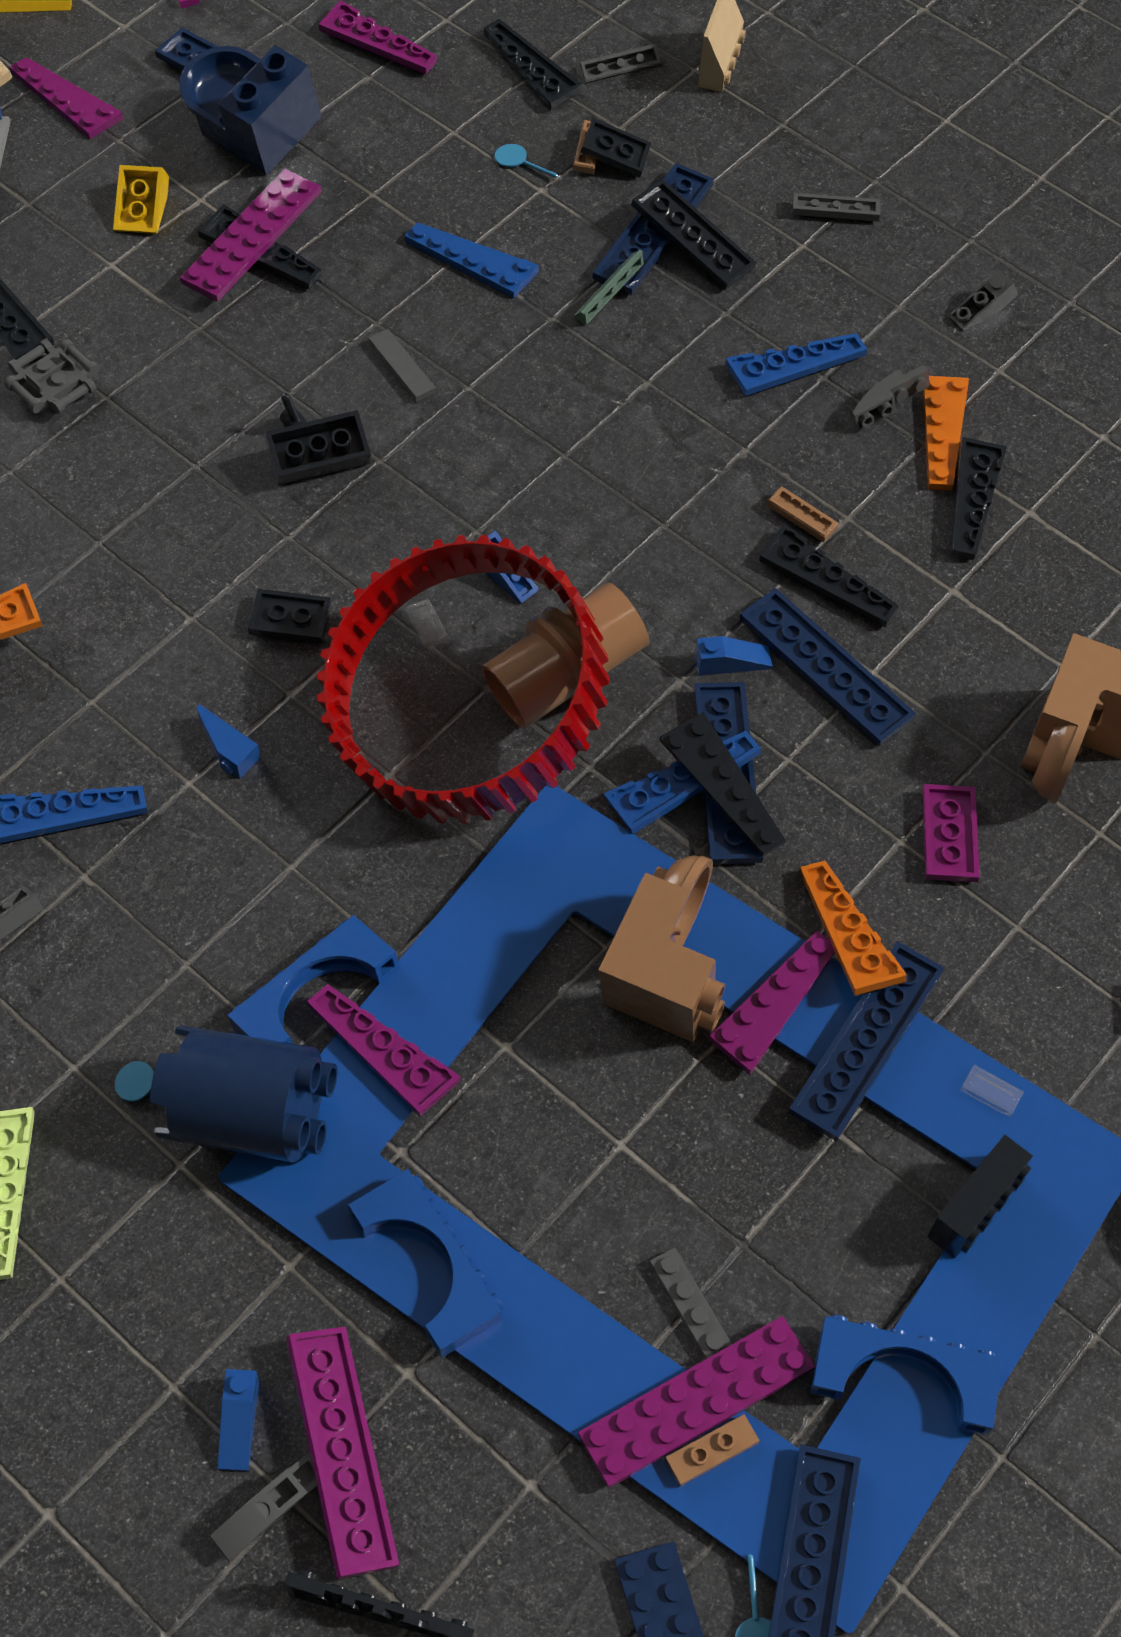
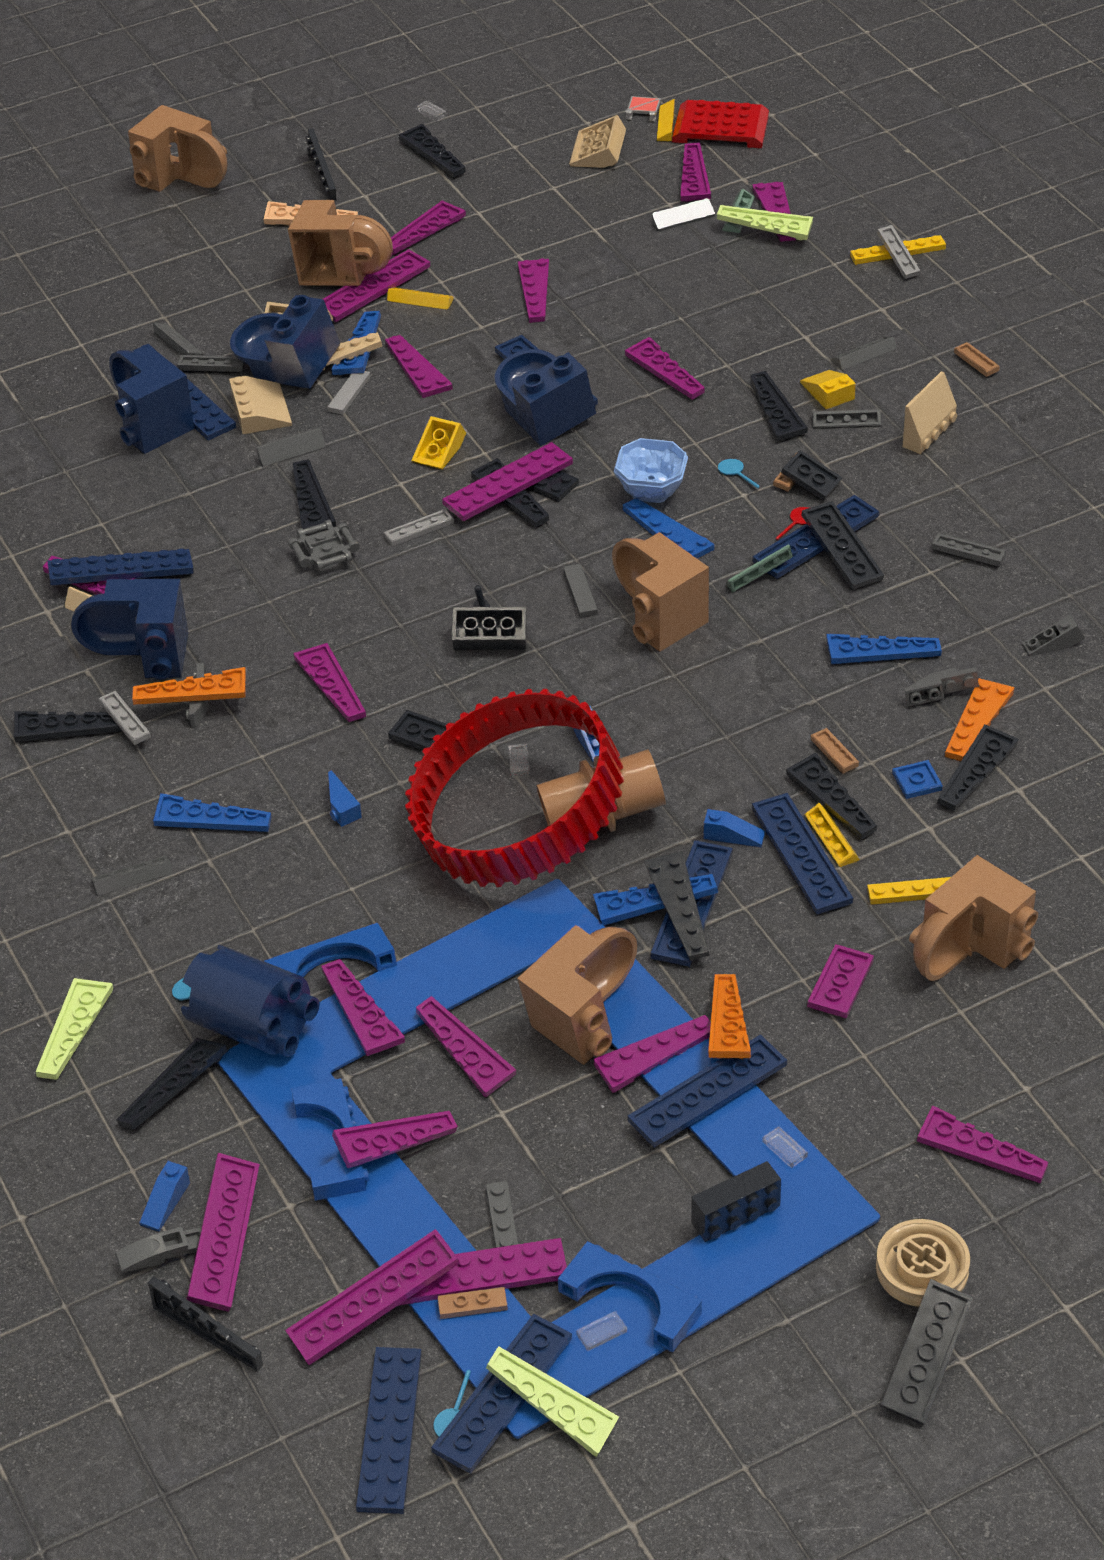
camera: 25 degrees right, 15 degrees down
(131, 561) = (328, 675): none -> magenta wing
(161, 322) = (418, 527): none -> light grey tile
(182, 1218) = (172, 1080): none -> black wing
(311, 227) = (555, 486): none -> black plate
(427, 180) = (651, 469): none -> light blue rock
(496, 1249) = (384, 1138): none -> magenta wing
(517, 336) = (665, 586): none -> medium nougat piece
(557, 1075) = (472, 1054): none -> magenta wing
(583, 25) = (830, 388): none -> yellow slope
(586, 1493) = (372, 1296): none -> magenta plate
(620, 204) = (796, 517): none -> red piece
(848, 632) = (831, 836): none -> yellow slope
(889, 1436) = (601, 1331): none -> clear tile
(900, 1573) = (566, 1408): none -> yellowish green wing
(912, 528) = (917, 779): none -> blue tile
(990, 676) = (903, 890): none -> yellow plate

